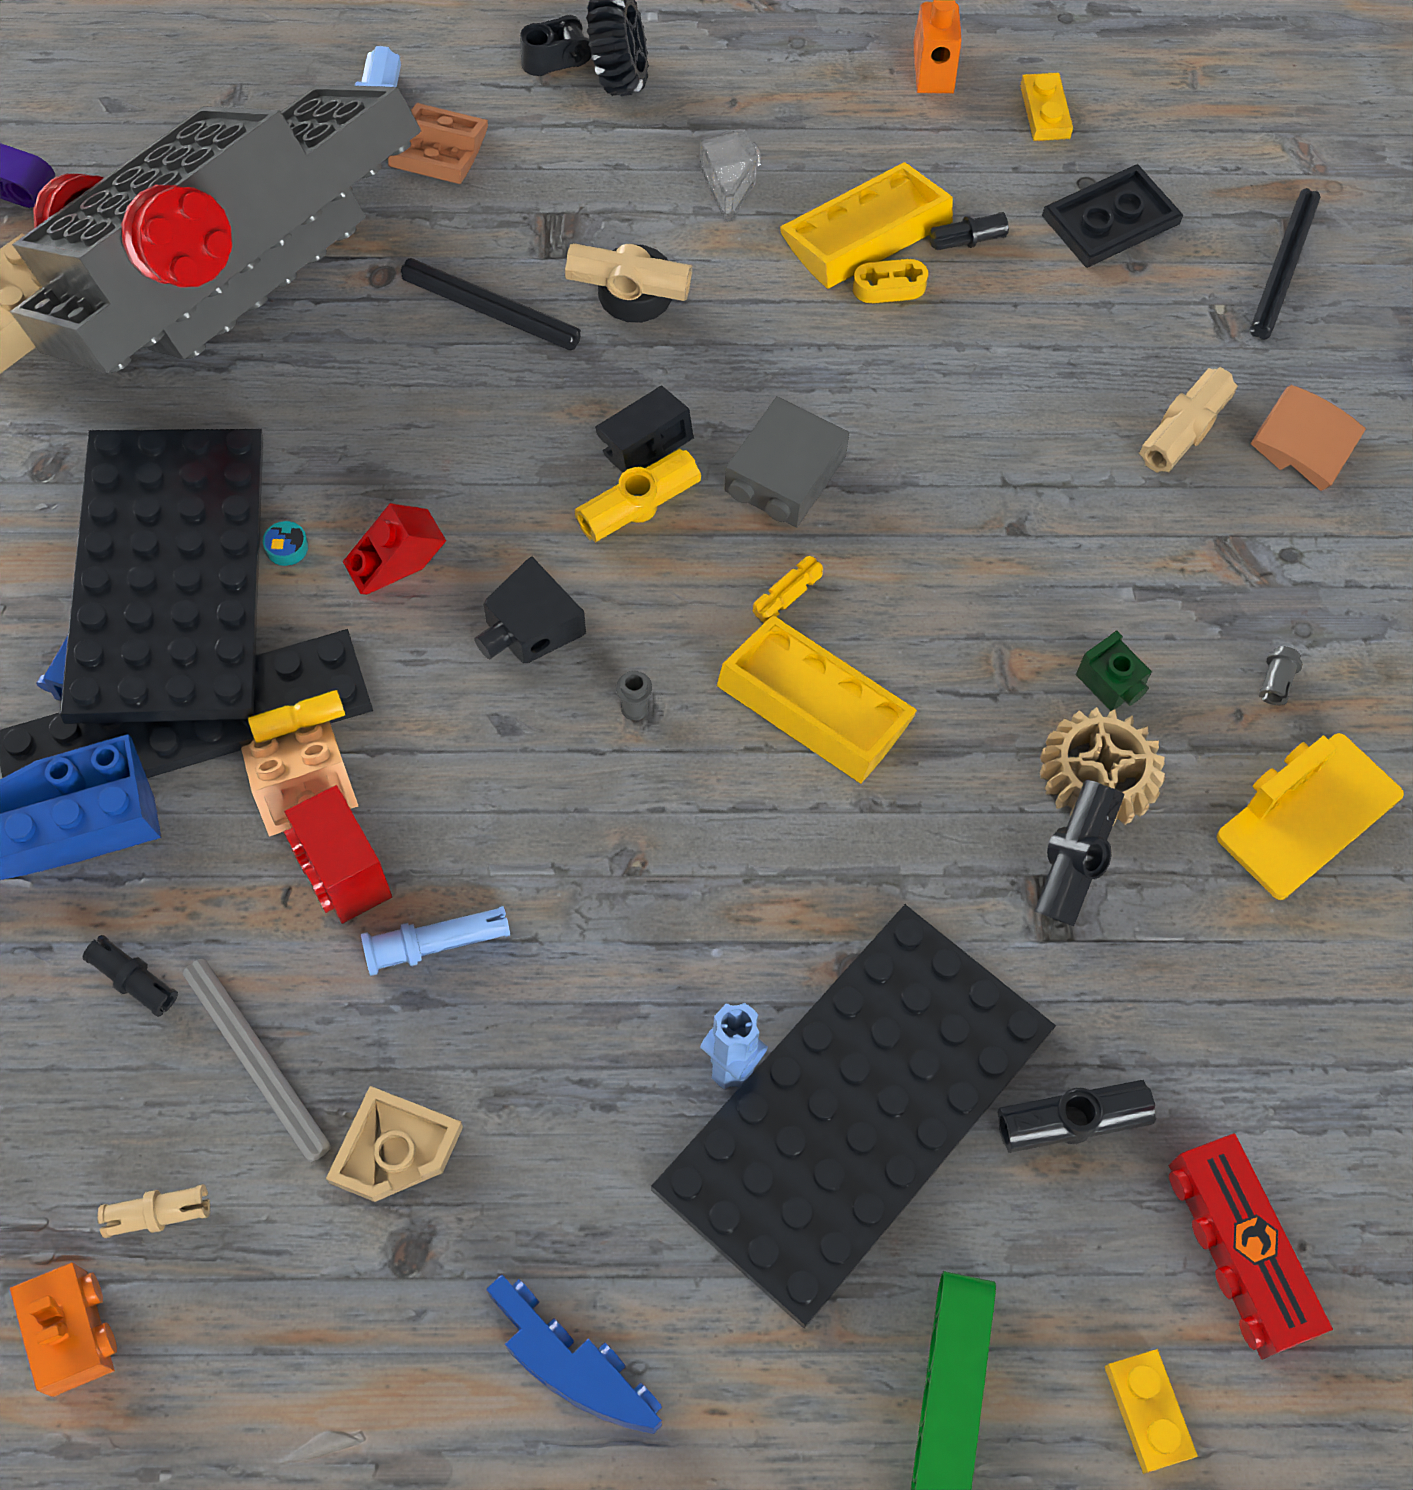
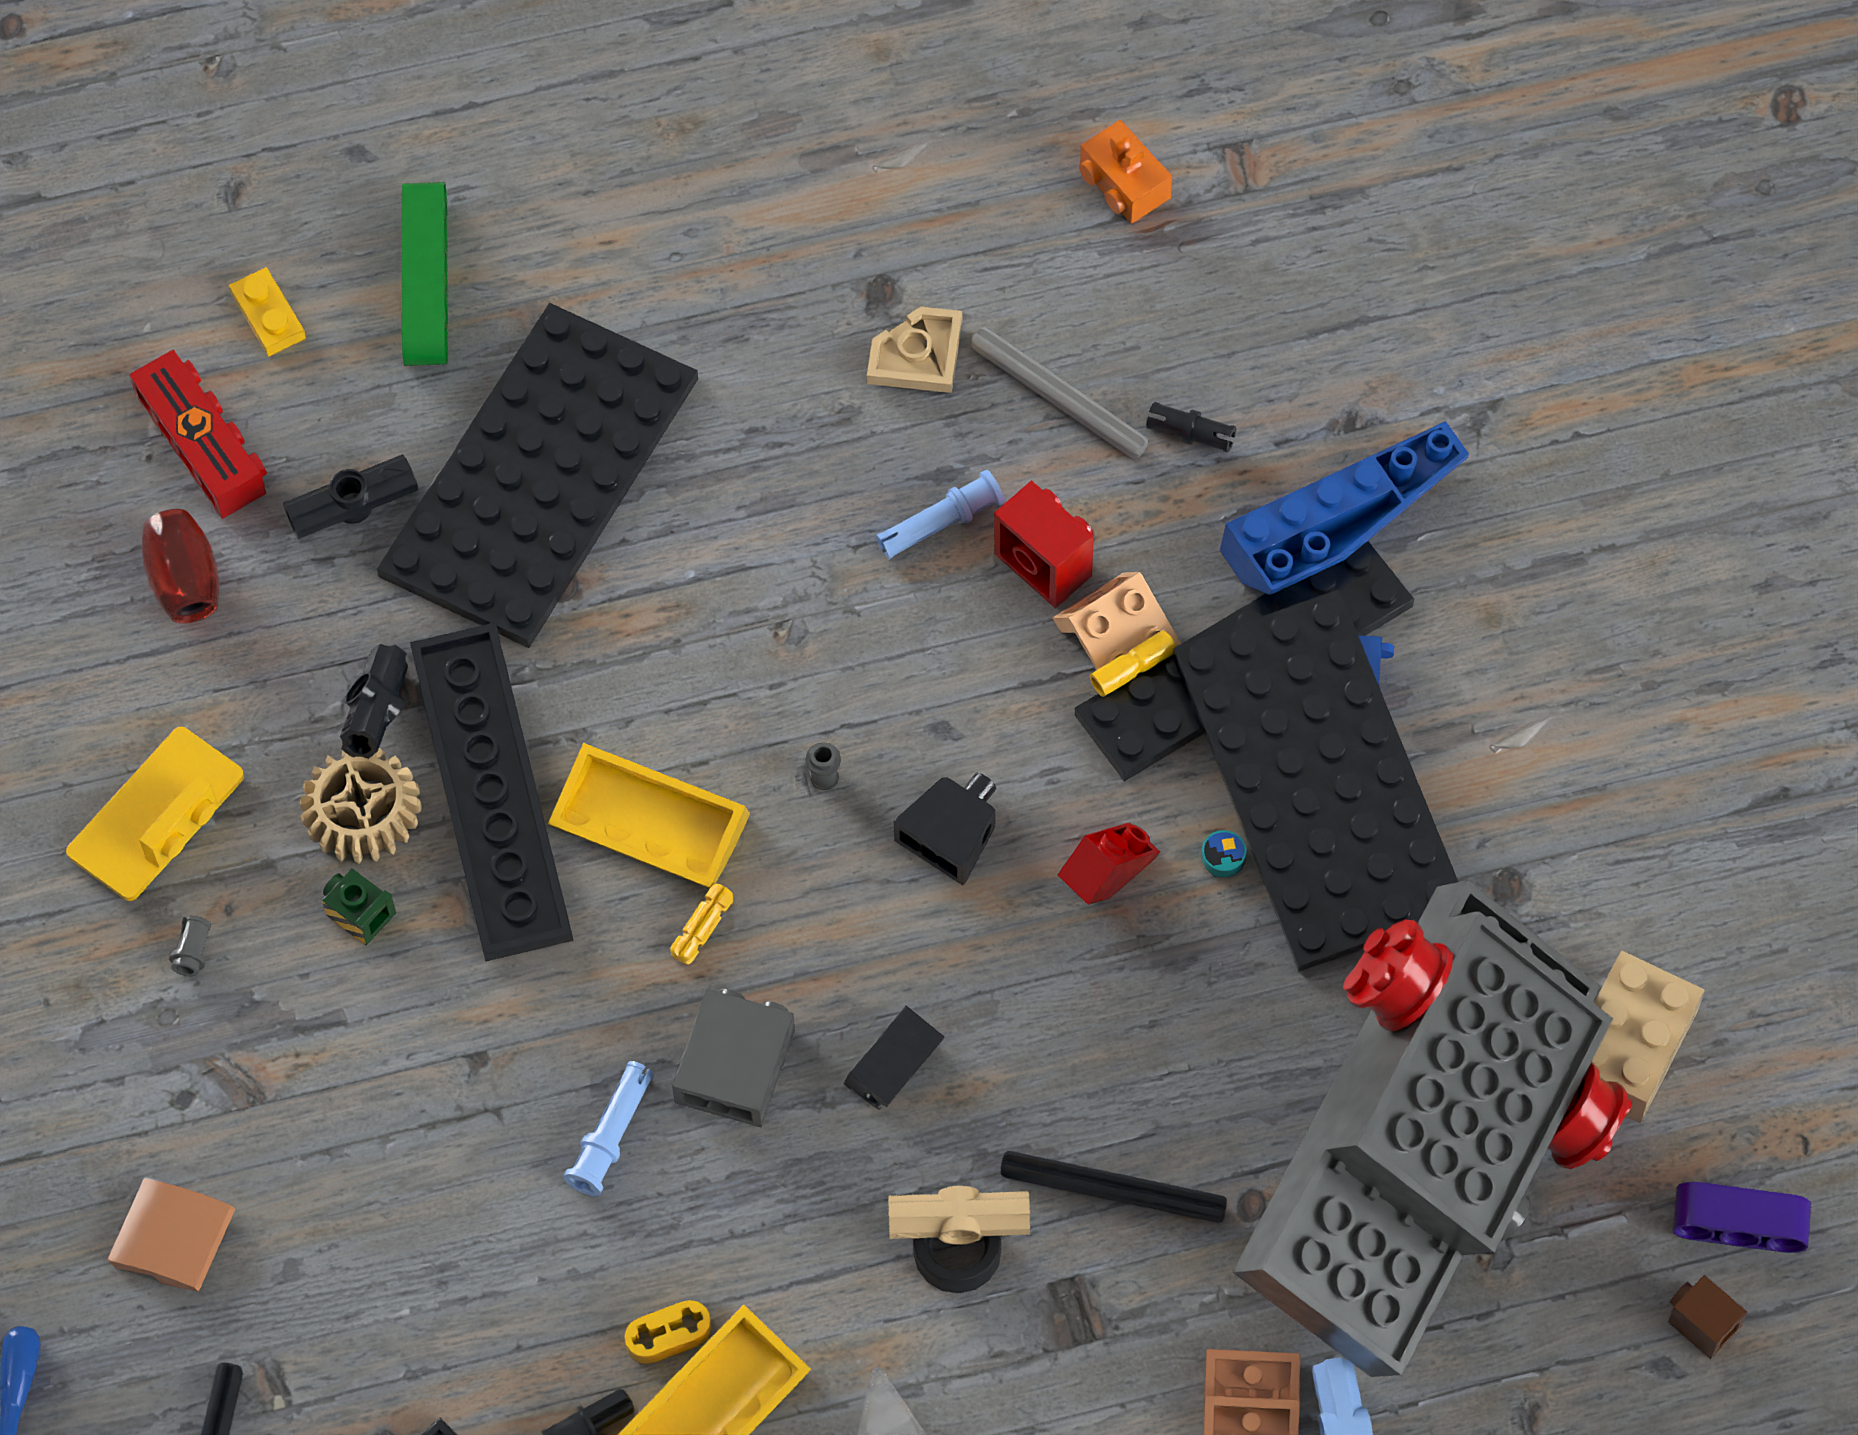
camera: 170 degrees right, 0 degrees up
(62, 110) = (1706, 1315): none -> reddish brown brick
(154, 1211) = (1092, 264): tan pin -> none
(585, 1378) = (716, 227): blue slope -> none
(620, 506) = (862, 999): yellow piece -> none
(734, 1045) = (649, 451): light blue piece -> none
(919, 422) = (601, 1146): none -> light blue pin
(969, 765) = (491, 792): none -> black plate
(1188, 420) = (305, 1219): tan piece -> none
(1278, 1068) = (180, 566): none -> clear red piece

